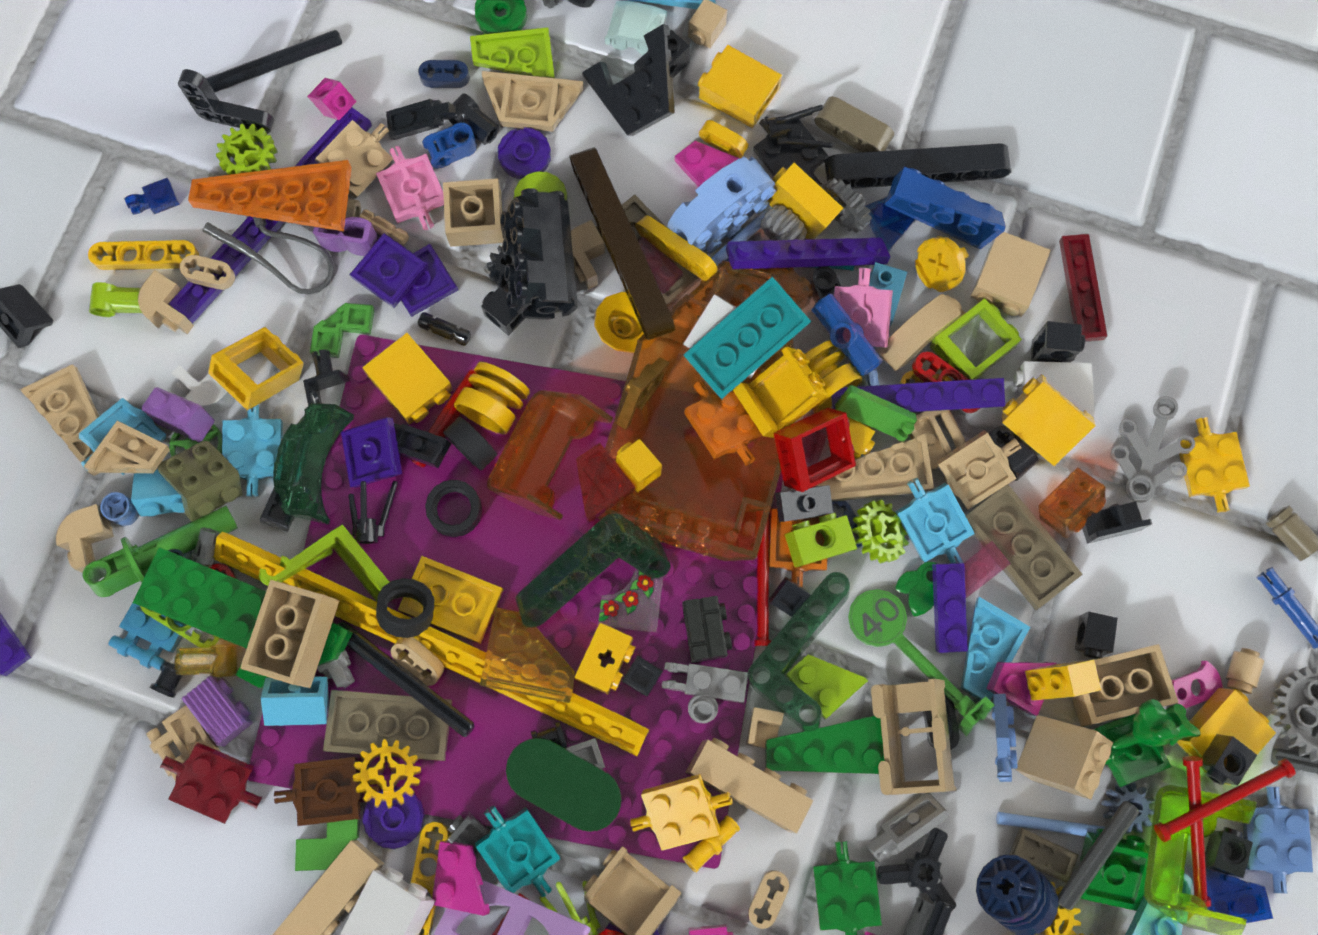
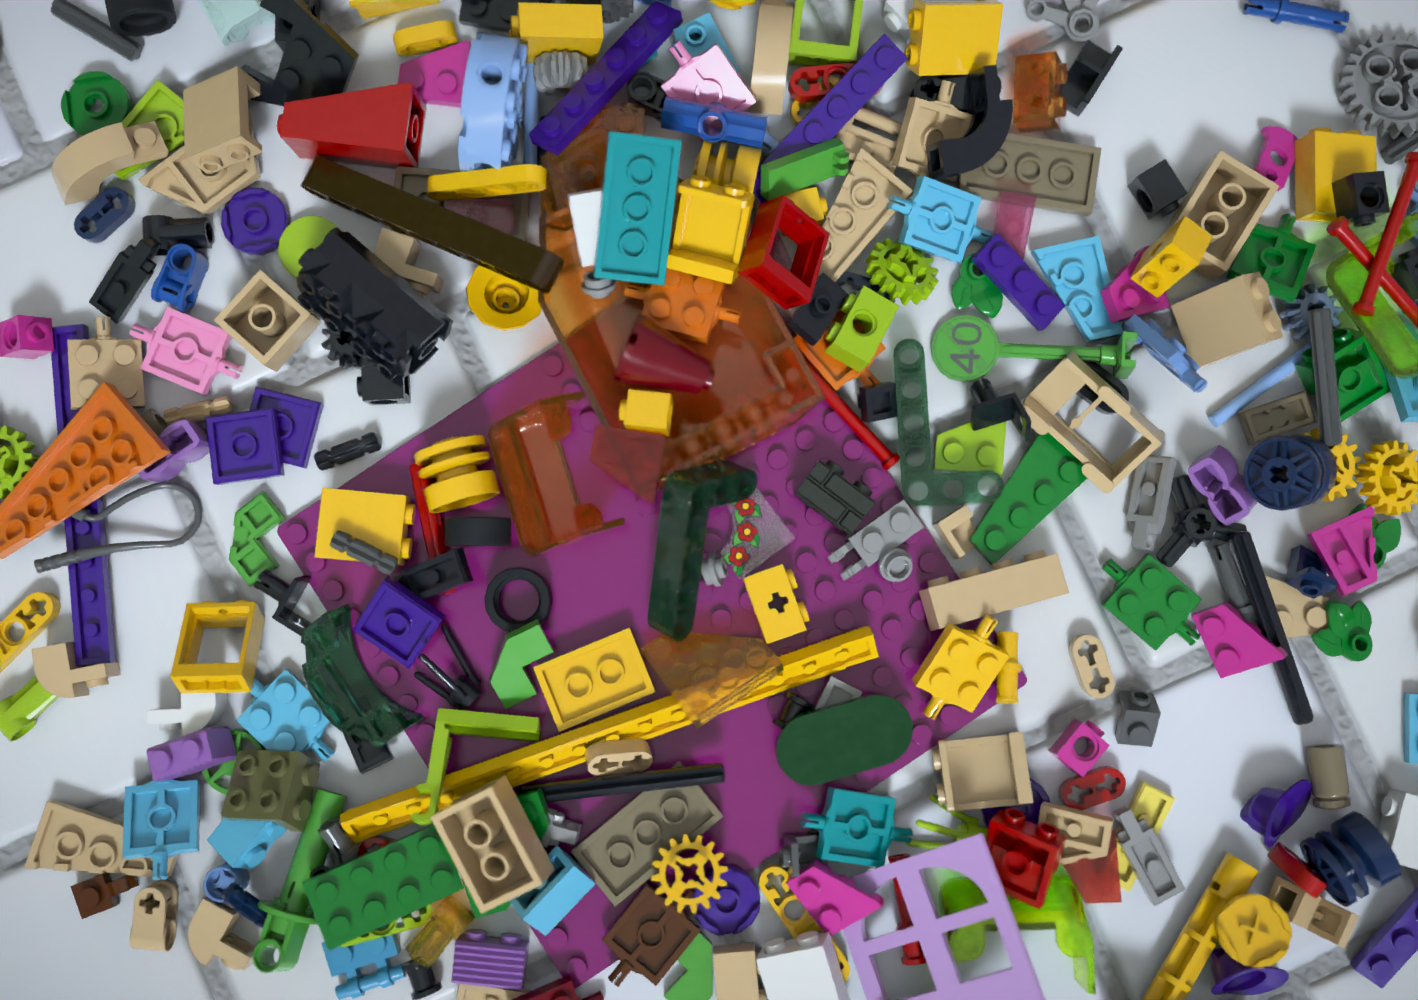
camera: 40 degrees left, 10 degrees up
(45, 446) = (100, 893): none -> reddish brown plate
(59, 490) = (155, 923): none -> tan piece
(115, 529) = (244, 903): none -> dark blue axle
(127, 452) = (184, 830): tan wing -> none
(206, 277) = (78, 598): tan beam -> none
(392, 391) = (364, 552): none -> dark grey axle
(405, 627) = (550, 708): black tyre -> none
(424, 536) = (517, 651): none -> bright green tile
(475, 37) = (100, 153): none -> tan arch
(558, 77) = (219, 120): none -> tan panel
(588, 602) = (714, 570): none -> light grey plate
(635, 153) = (358, 127): none -> red slope
(641, 389) = (584, 342): pearl gold wing -> none
(642, 676) = (818, 586): black tile -> none
(676, 441) = (662, 360): none -> dark red cone
(682, 365) = (597, 287): none -> light grey plate
(859, 672) = (995, 409): none -> black bracket
(965, 857) = (1219, 479): none -> medium lavender brick
(1020, 493) = (985, 134): none -> black arch
(1158, 726) = (1281, 222): green animal -> none
(1244, 670) = (1303, 105): tan brick -> none

